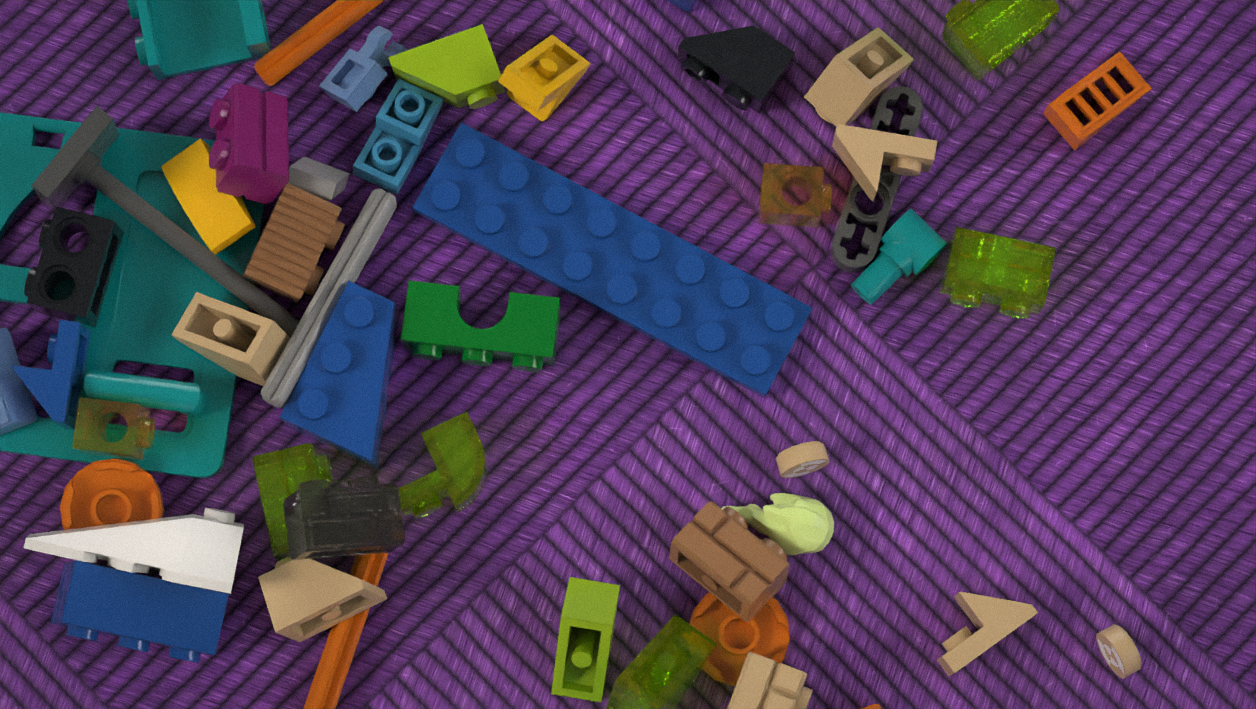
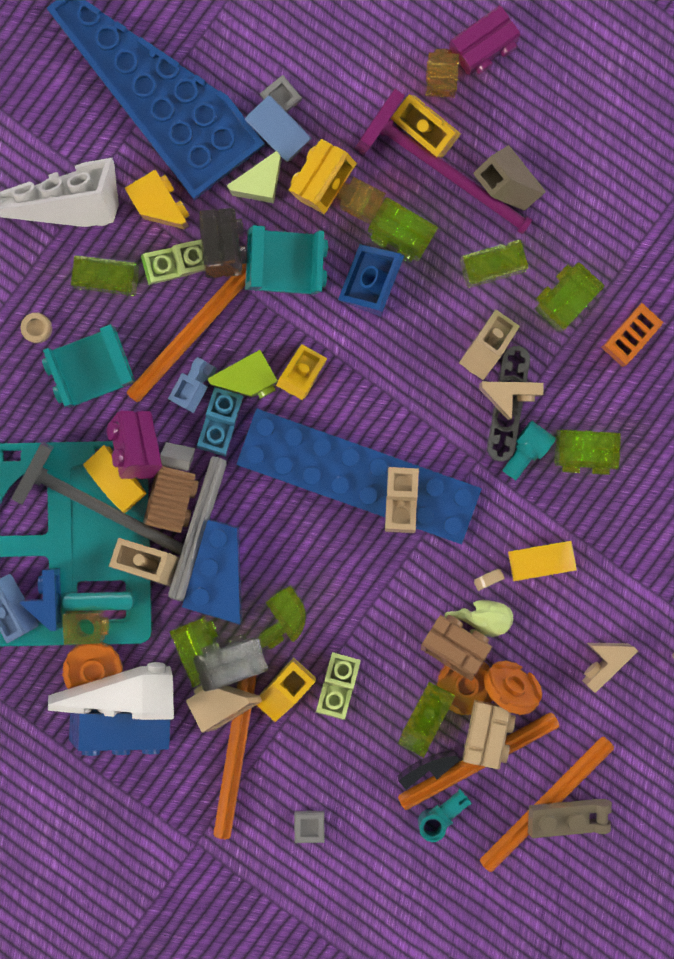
camera: 10 degrees left, 10 degrees up
(88, 268) = (52, 535): black brick -> none
(428, 589) = (286, 689): none -> yellow slope
(520, 601) = (338, 686): none -> yellowish green slope
(523, 335) = (262, 533): green arch -> none
(585, 639) = (379, 703): lime slope -> none
(675, 301) = (401, 500): none -> tan slope
(738, 61) = (418, 346): black slope -> none
(774, 208) = (447, 419): clear yellow brick -> none
(814, 644) = (512, 687): none -> orange tile
(896, 441) = (542, 561): none -> yellow slope

